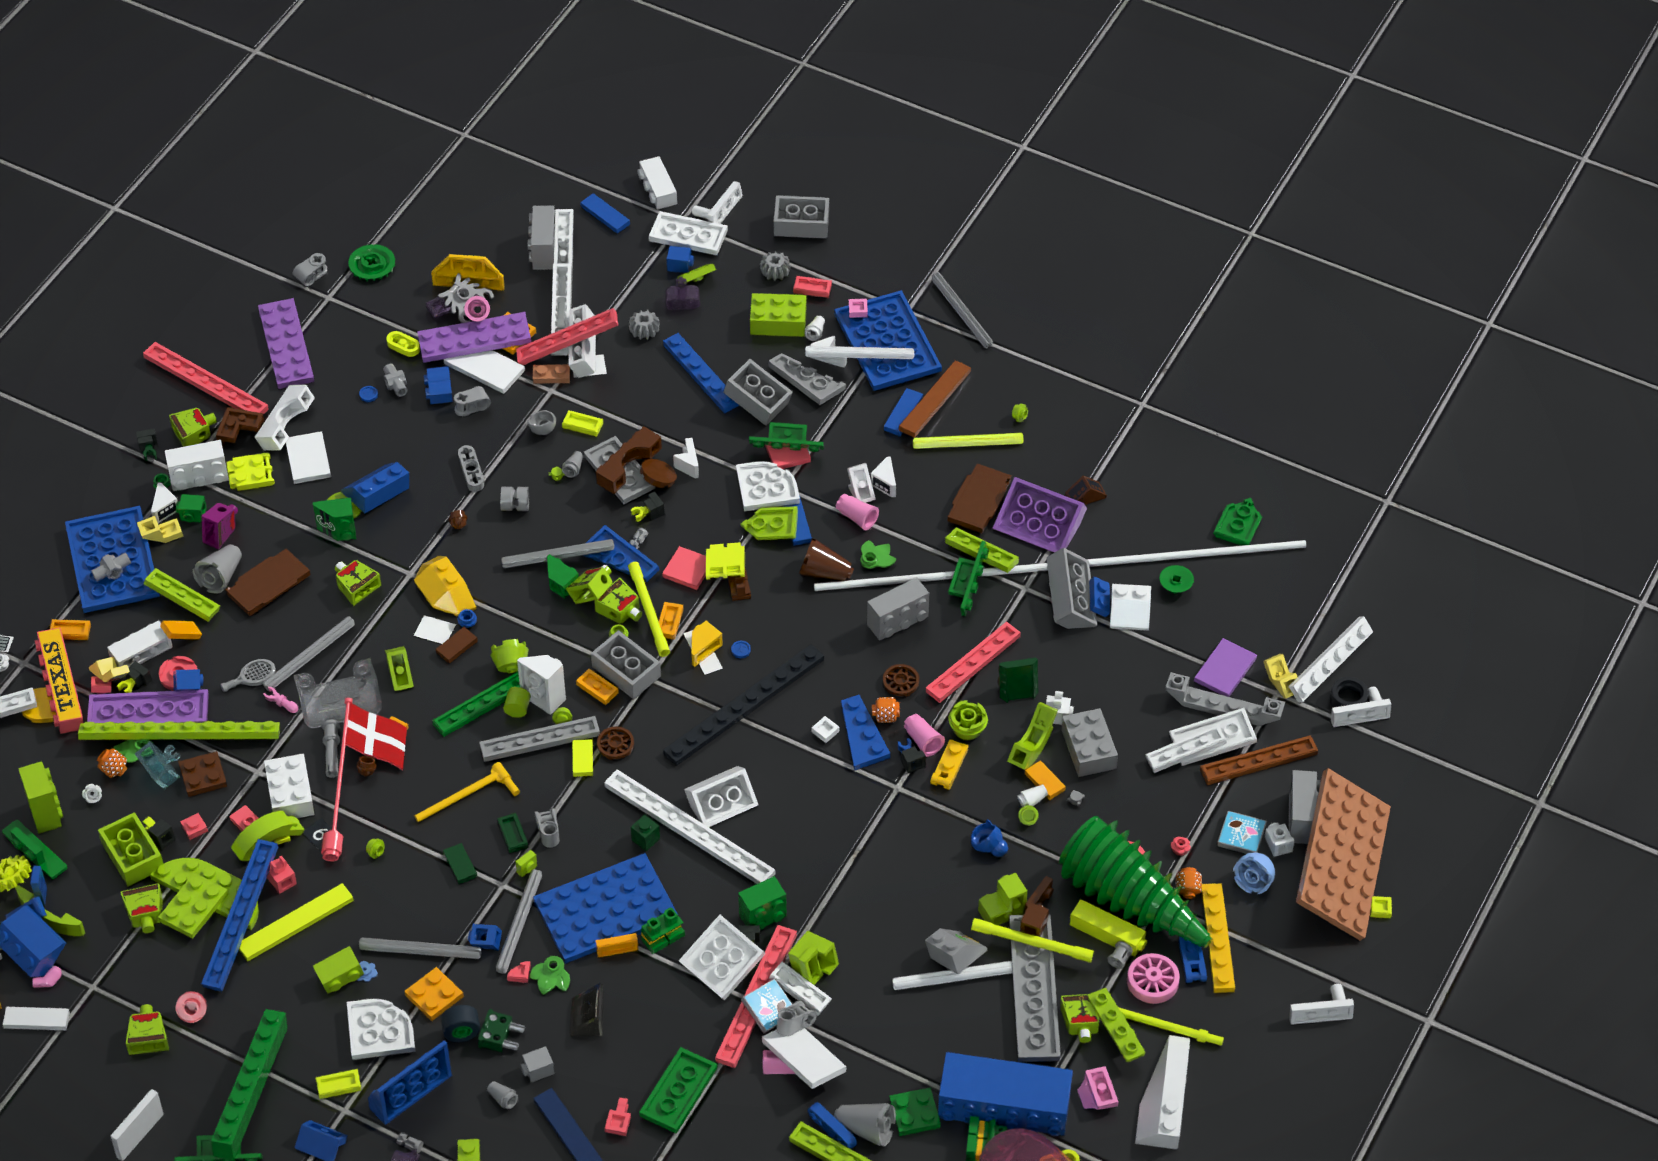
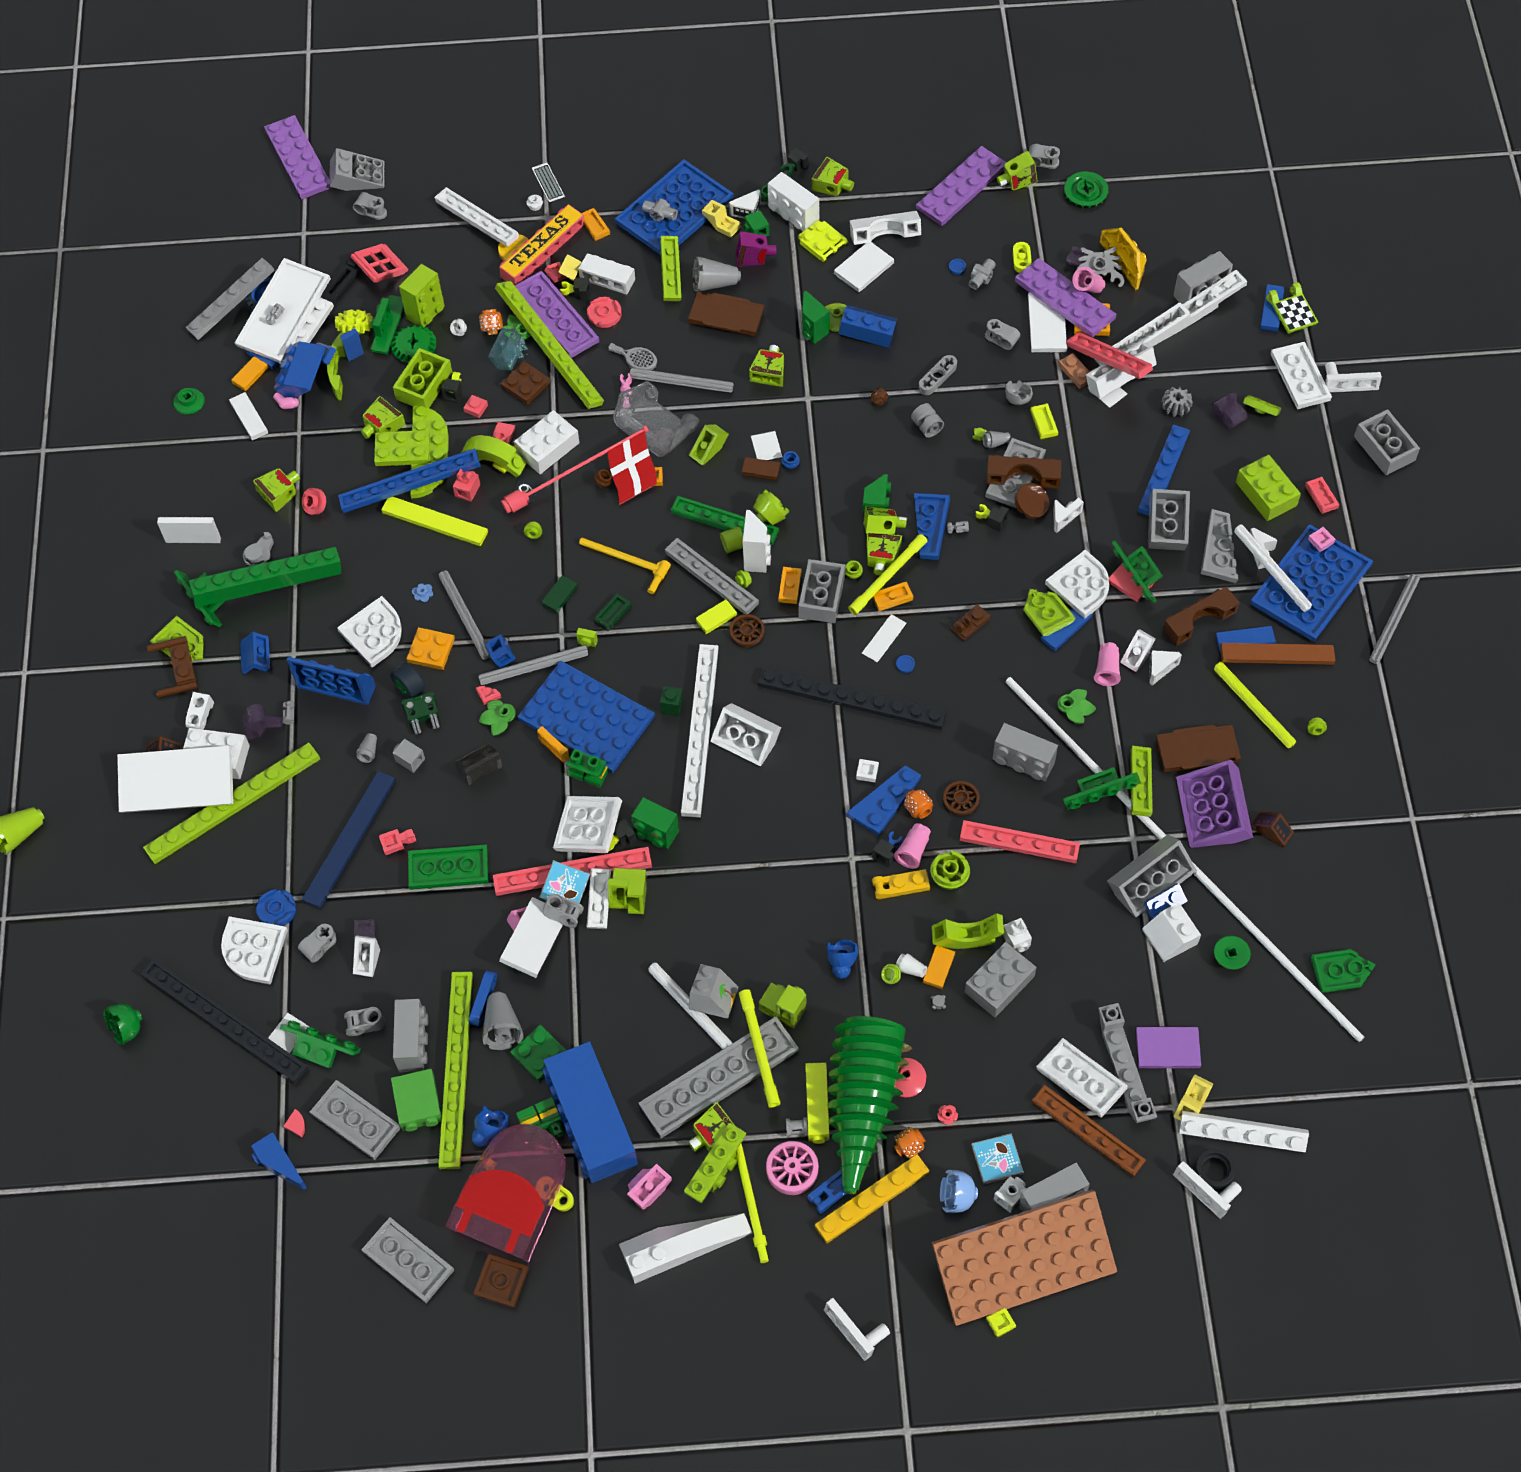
camera: 60 degrees right, 10 degrees up
(76, 851) = (402, 341): none -> green gear
(180, 629) = (638, 287): light orange tile -> none
(187, 679) = (595, 319): blue brick -> none
(203, 379) = (882, 160): coral plate -> none
(206, 1083) = (259, 552): none -> light grey piece
(234, 421) = (851, 198): reddish brown panel -> none
(315, 293) = (1019, 172): none -> lime torso
(331, 740) = (609, 441): light grey pin -> none
(338, 970) = (405, 573): lime brick -> none
(338, 1084) = (312, 635): neon yellow tile -> none
(439, 385) = (1000, 304): blue brick -> none
(444, 586) = (807, 426): yellow wedge -> none
(548, 827) = (635, 629): light grey piece -> none
(561, 553) = (897, 481): light grey axle -> none
(619, 200) = (1293, 311): none -> flag
(657, 182) = (1334, 322): white brick -> none
(679, 259) = (1266, 385): blue brick -> none
(686, 568) = (956, 578): coral tile -> none
(705, 641) = (885, 632): yellow slope -> none
(725, 561) = (976, 598): neon yellow plate -> none
(775, 266) = (1319, 455): light grey gear -> none
(814, 329) = (1277, 522): white cone -> none
(825, 563) = (1032, 671): reddish brown cone -> none
(860, 411) = (1219, 605): none -> reddish brown arch
(1018, 679) = (1022, 886): dark green slope -> none
(1034, 920) = (778, 1038): reddish brown brick -> none
(1043, 892) = (811, 1029): reddish brown plate -> none
(1186, 748) = (1050, 1062): white tile -> none

